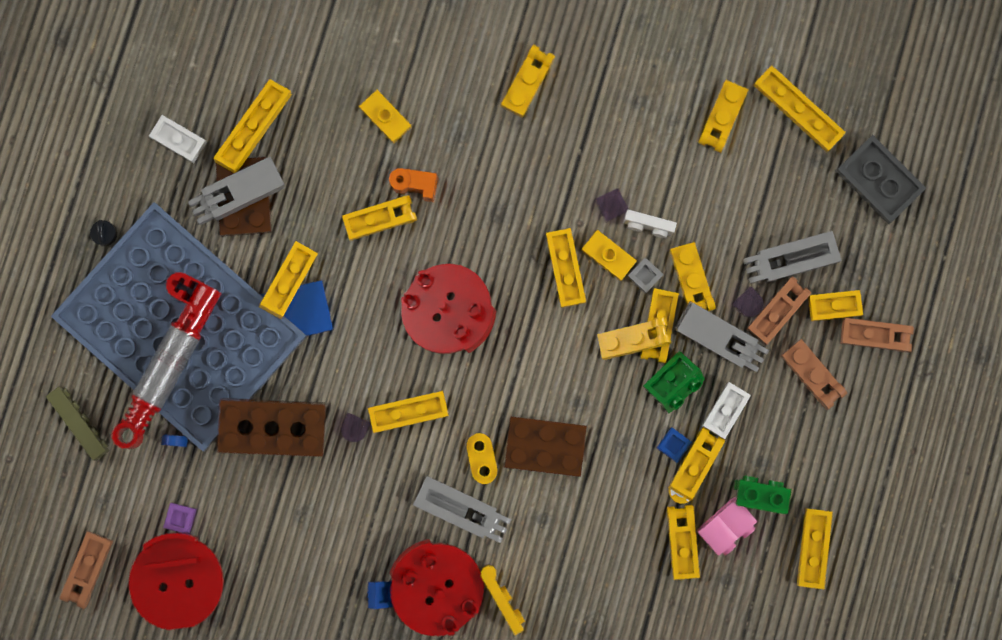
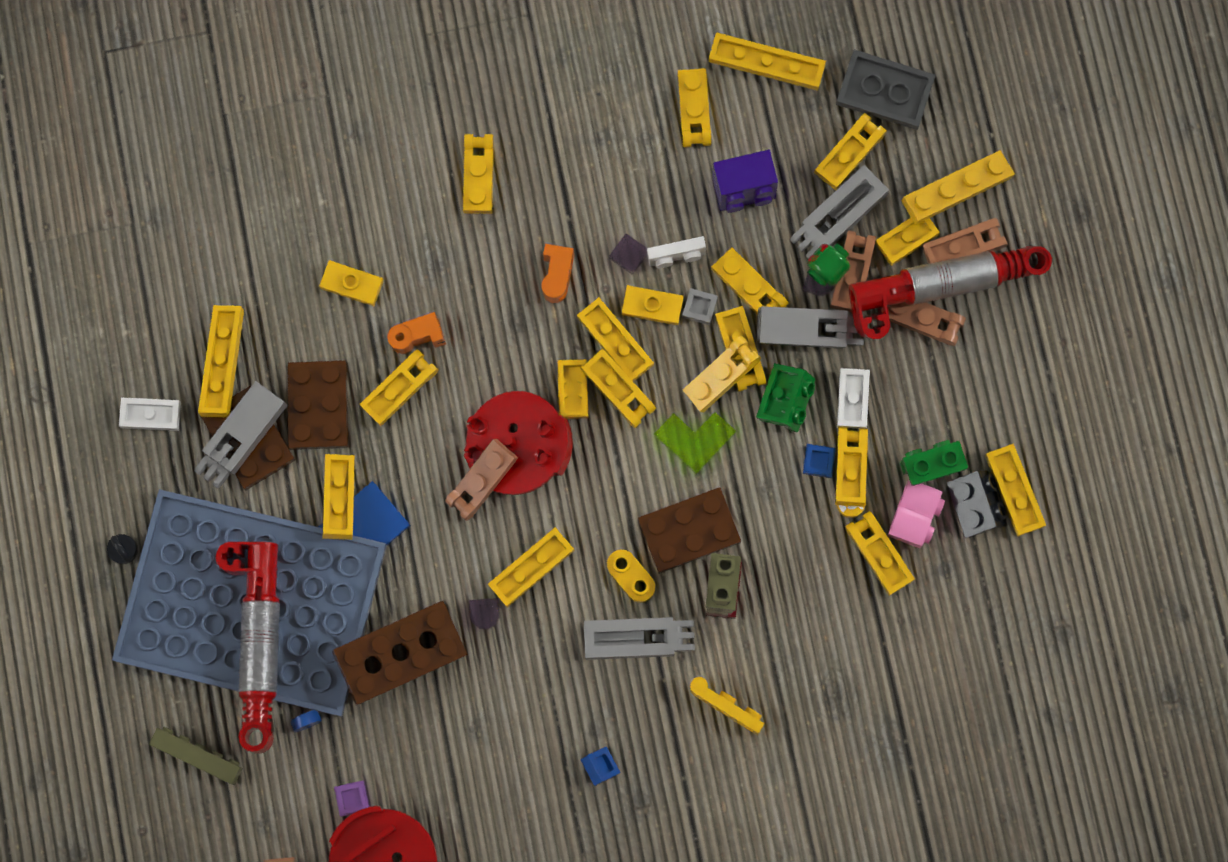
camera: 15 degrees left, 5 degrees down
(310, 198) = (317, 405): none -> reddish brown plate
(406, 323) = (482, 479): none -> nougat plate
(423, 573) = (632, 720): red piece -> none
(513, 289) = (572, 389): none -> yellow plate
(543, 199) = (557, 280): none -> orange leg
(547, 306) = (617, 387): none -> yellow plate
(548, 506) = (723, 586): none -> olive hips
(585, 384) = (697, 447): none -> clear neon green tile
(732, 196) = (745, 181): none -> dark purple brick
(762, 296) = (828, 264): none -> green head
(779, 543) = (977, 503): none -> bracket
(826, 214) = (849, 152): none -> yellow plate
(843, 355) = (939, 281): none -> piece
(896, 286) = (957, 187): none -> yellow plate

